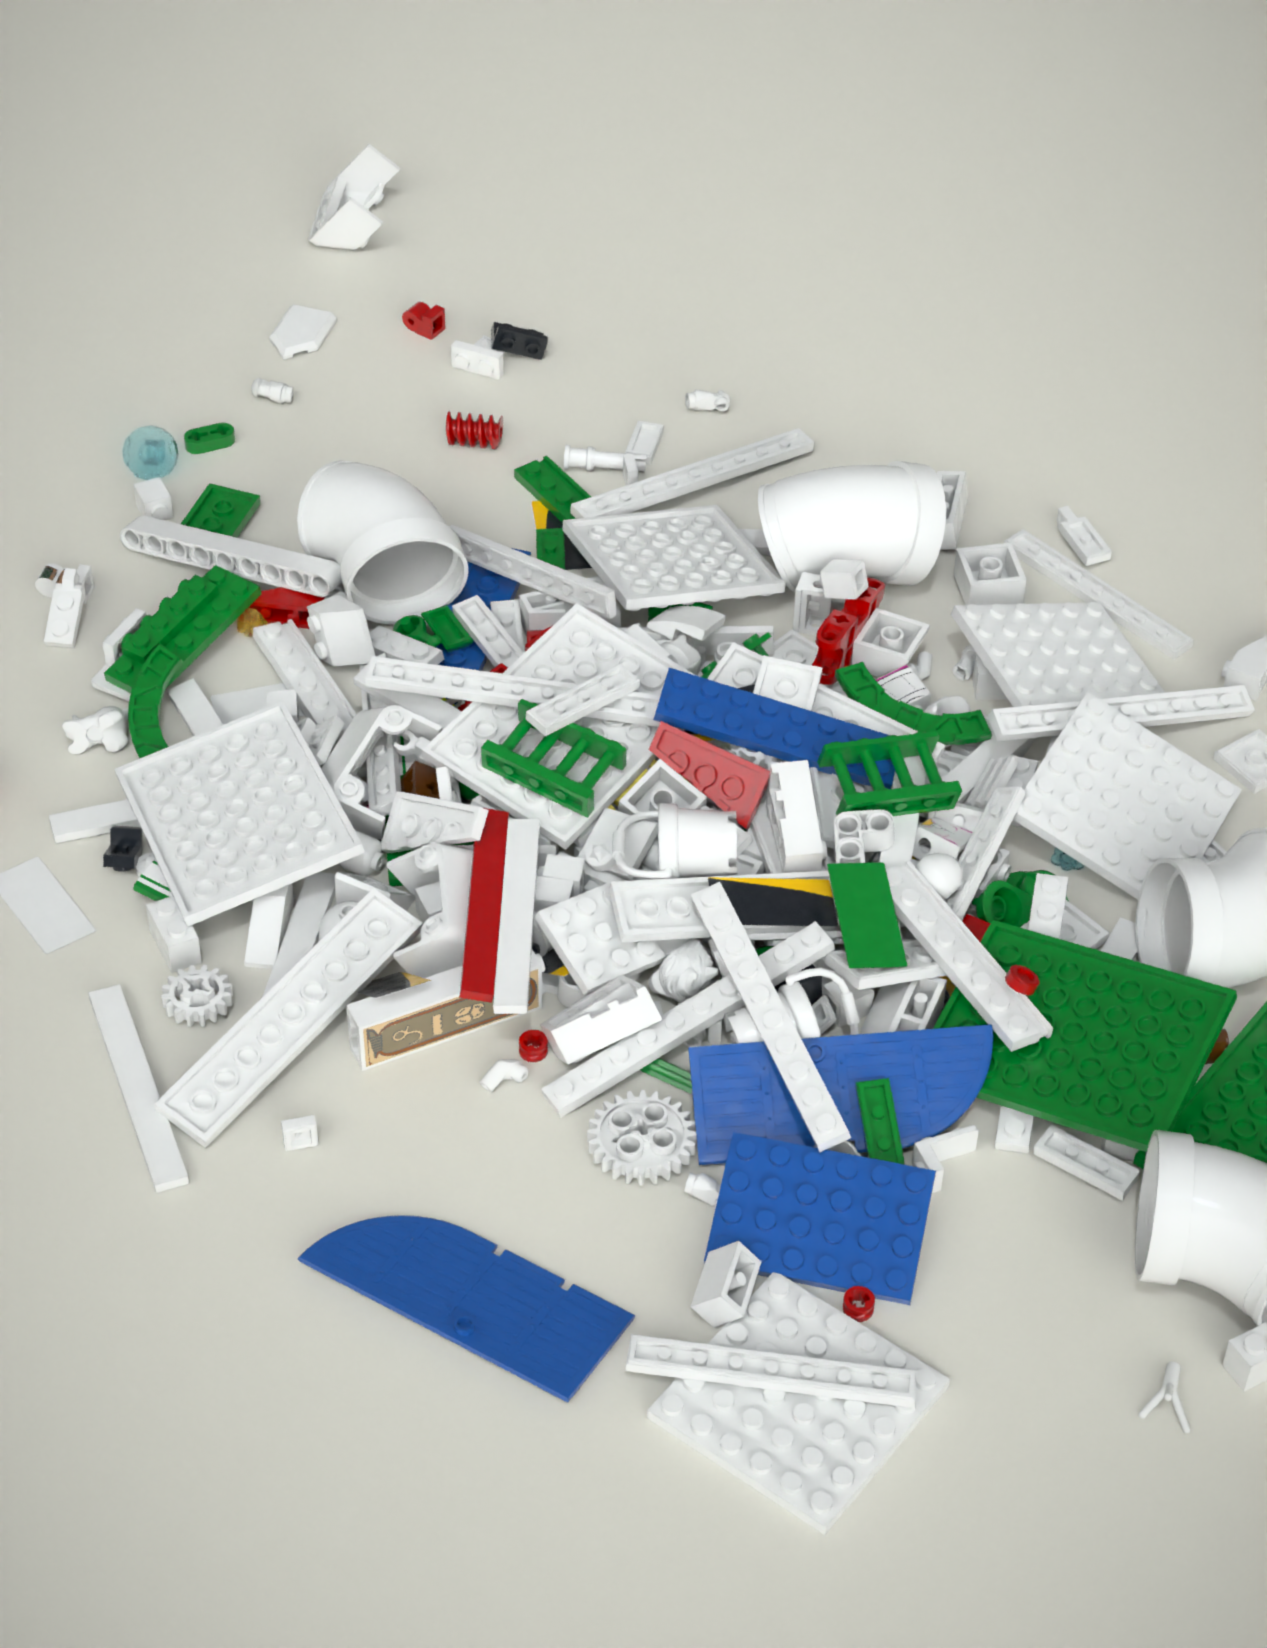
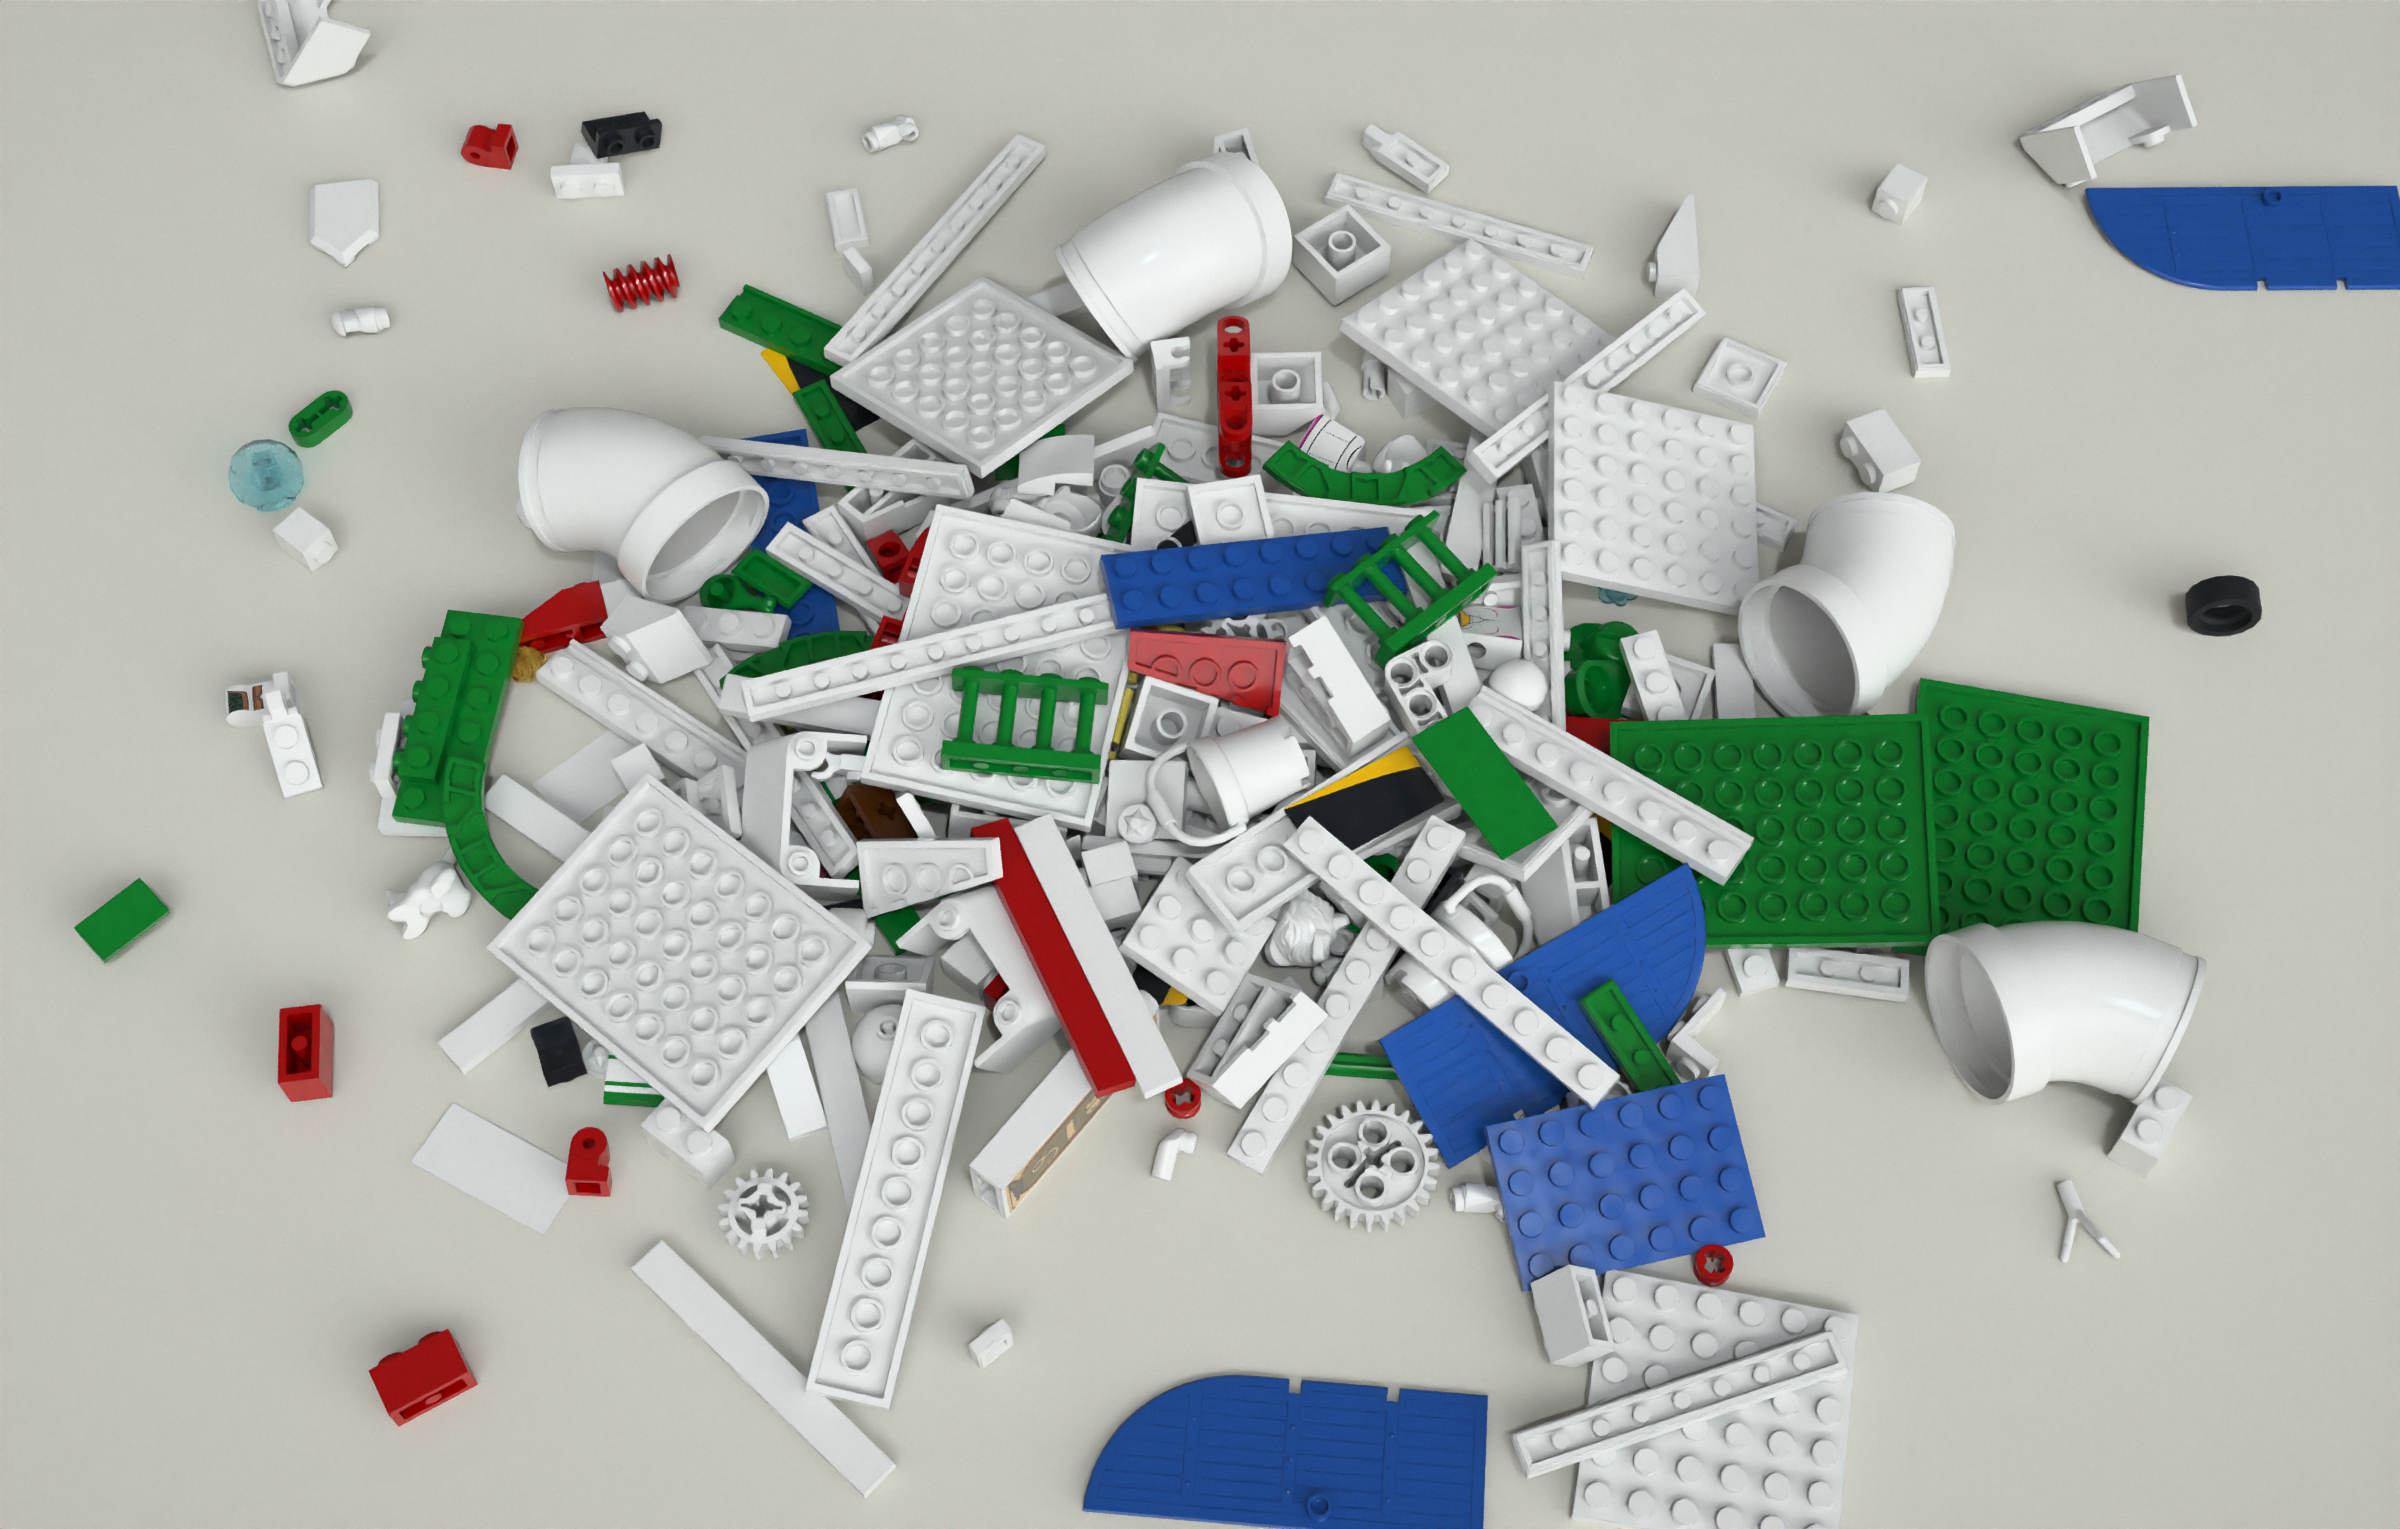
camera: 25 degrees left, 15 degrees up
(99, 921) = (587, 1164): none -> red leg
(222, 510) = (399, 532): green plate -> none
(233, 554) = (455, 584): white beam -> none
(392, 984) = (1000, 1107): black sticker -> none
(582, 699) = (1025, 640): white tile -> none
(590, 458) = (800, 268): white pin -> none
(844, 579) = (1209, 338): white brick -> none
(1022, 980) = (1690, 791): red tile -> none

